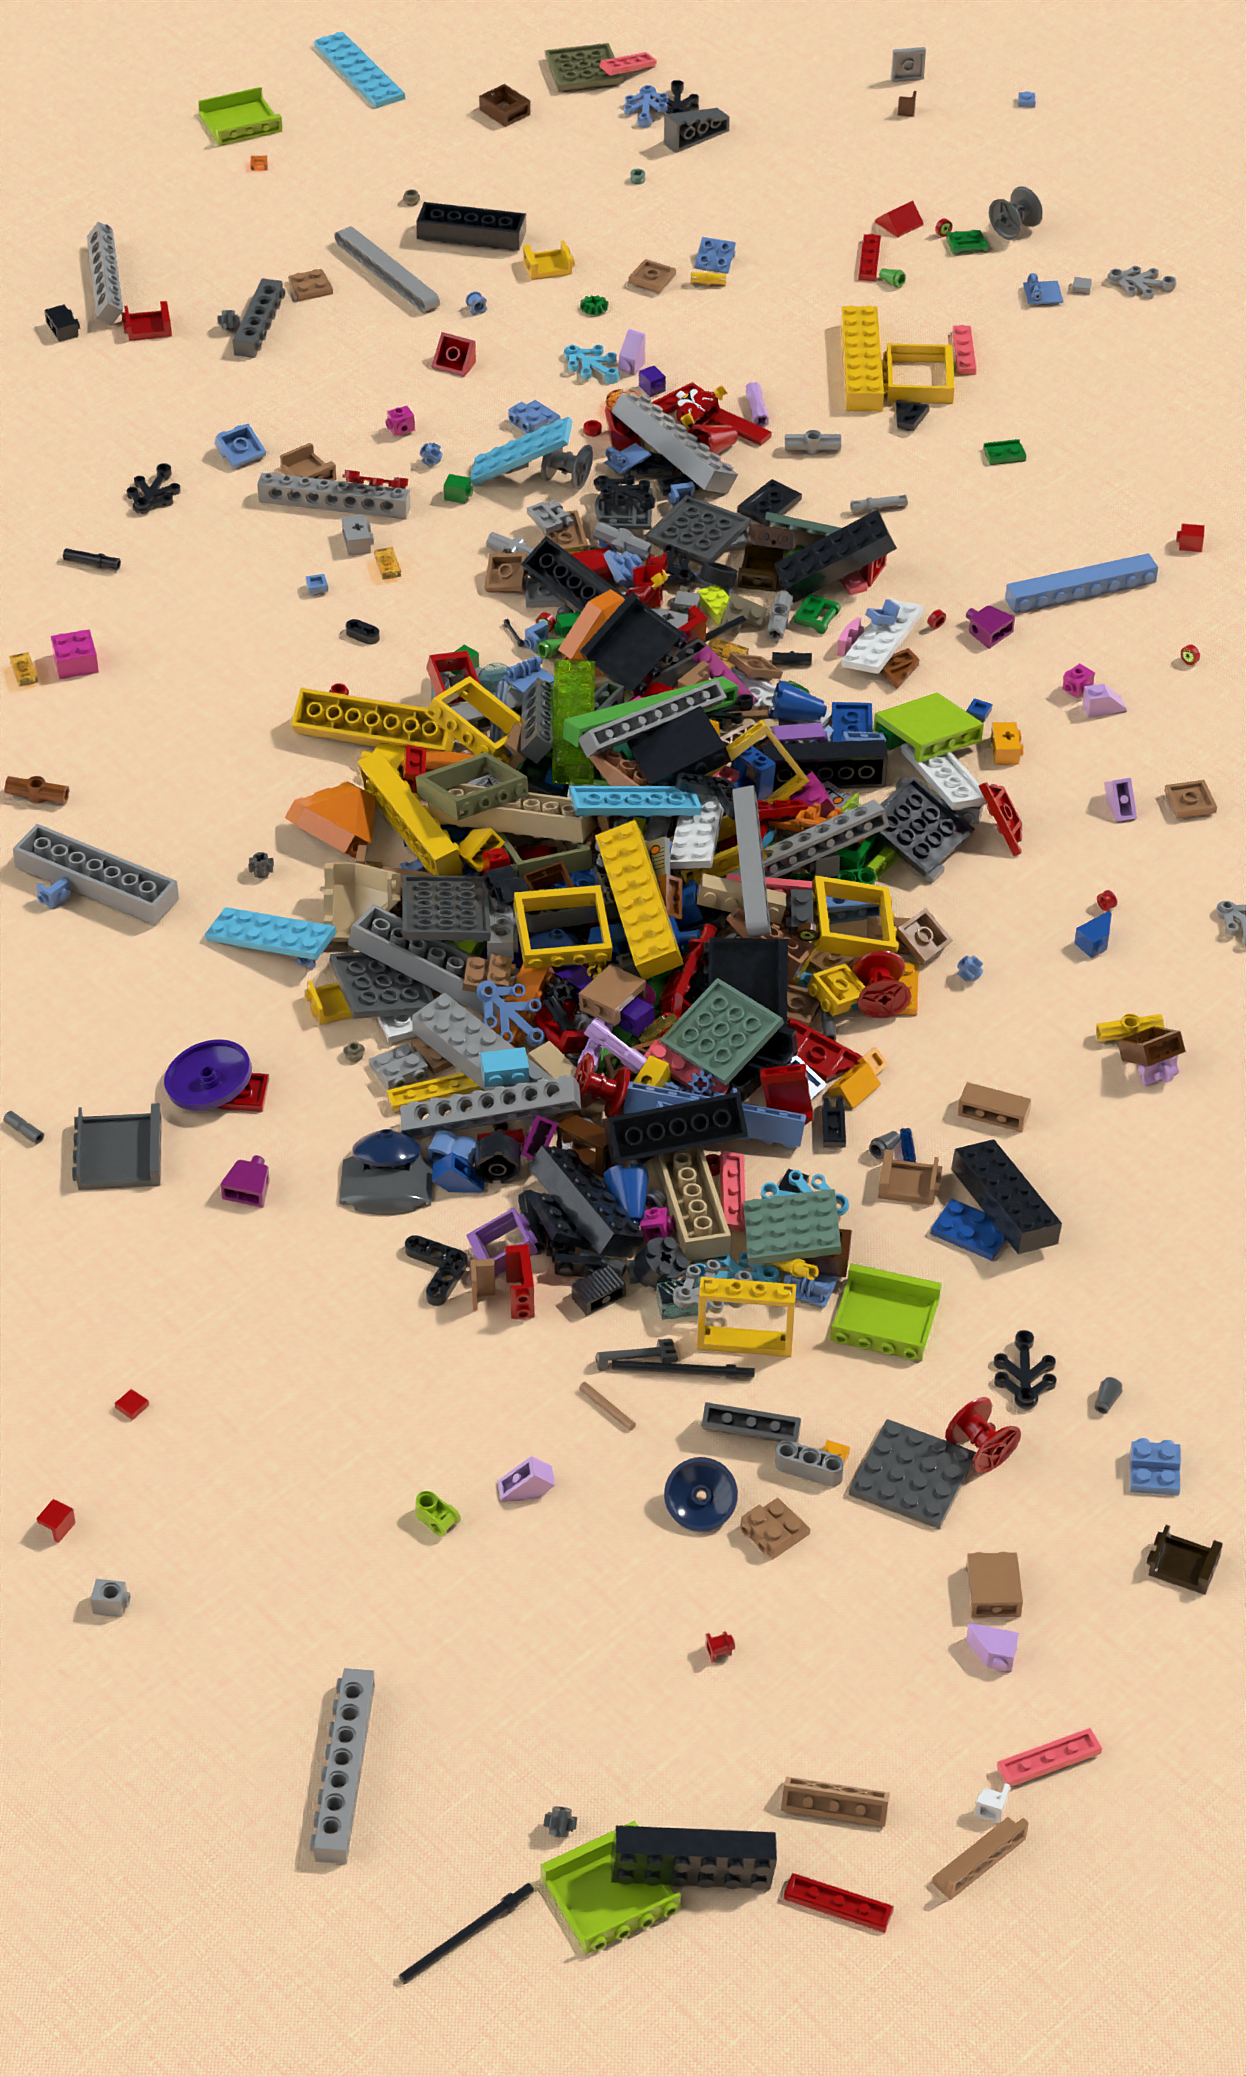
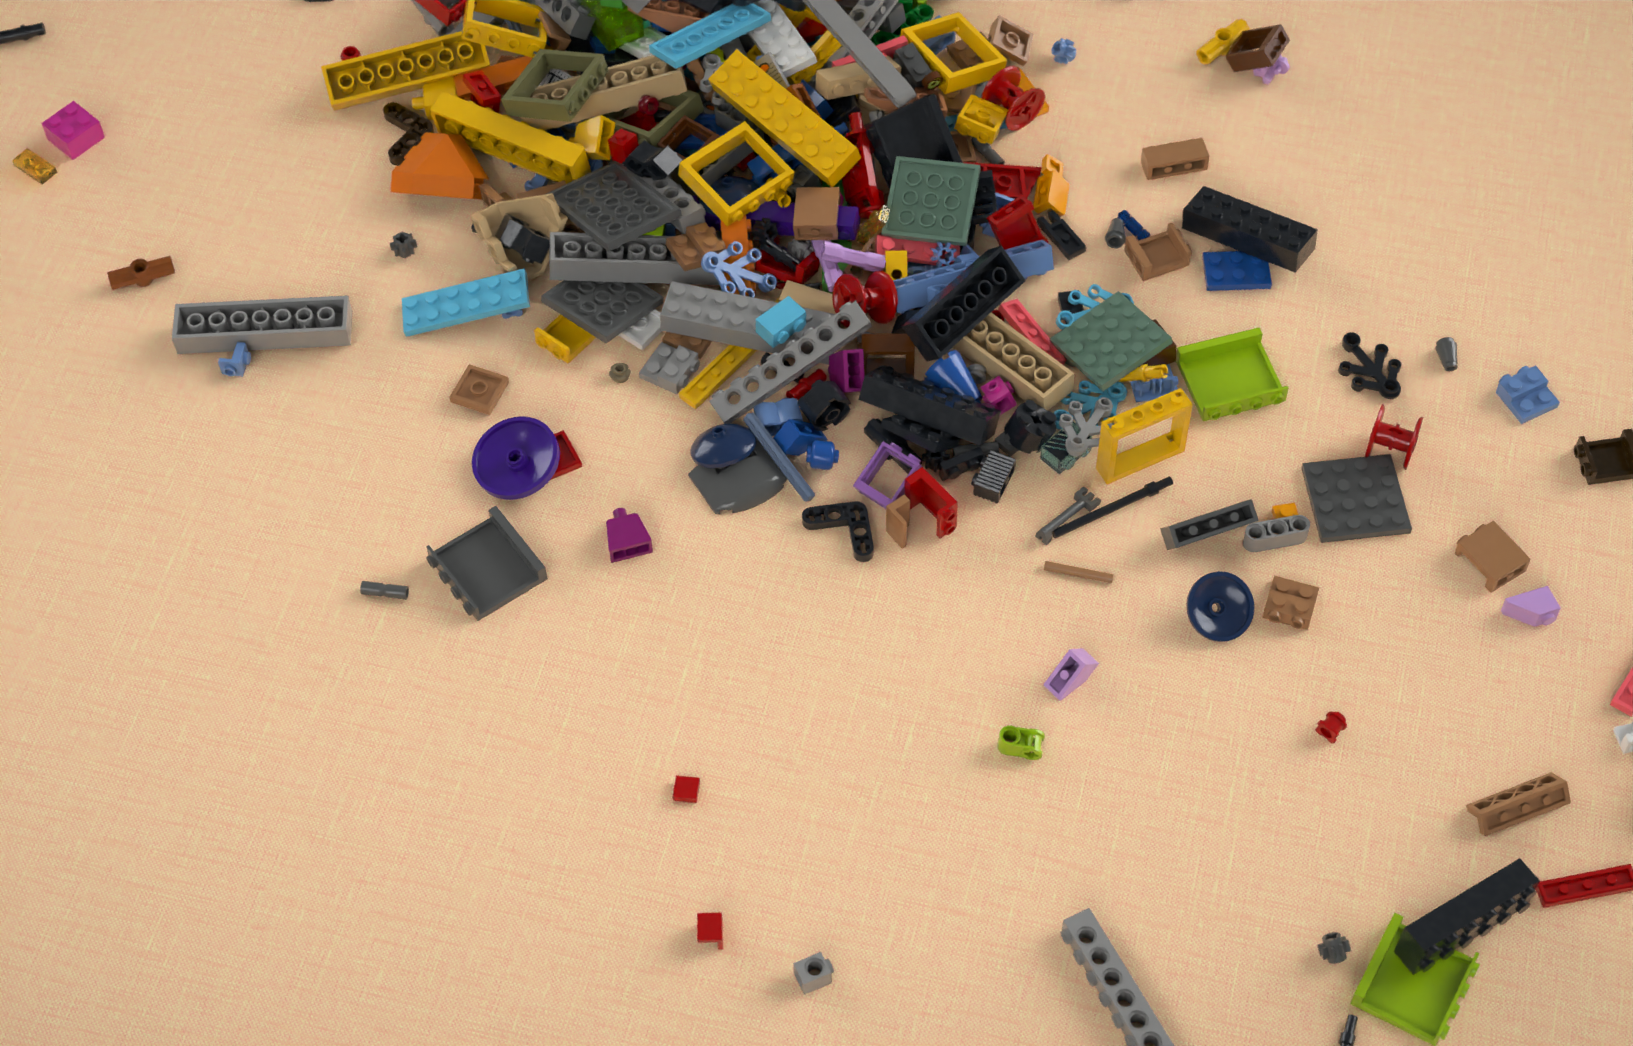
camera: 30 degrees left, 10 degrees up
(227, 1008) = (479, 389): none -> medium nougat plate
(346, 775) = (412, 130): none -> dark brown beam
(353, 900) = (526, 241): none -> black brick
(425, 1181) = (779, 457): none -> sand blue axle
(464, 1198) = (822, 455): none -> blue head
(545, 836) = (645, 108): none -> dark red bush

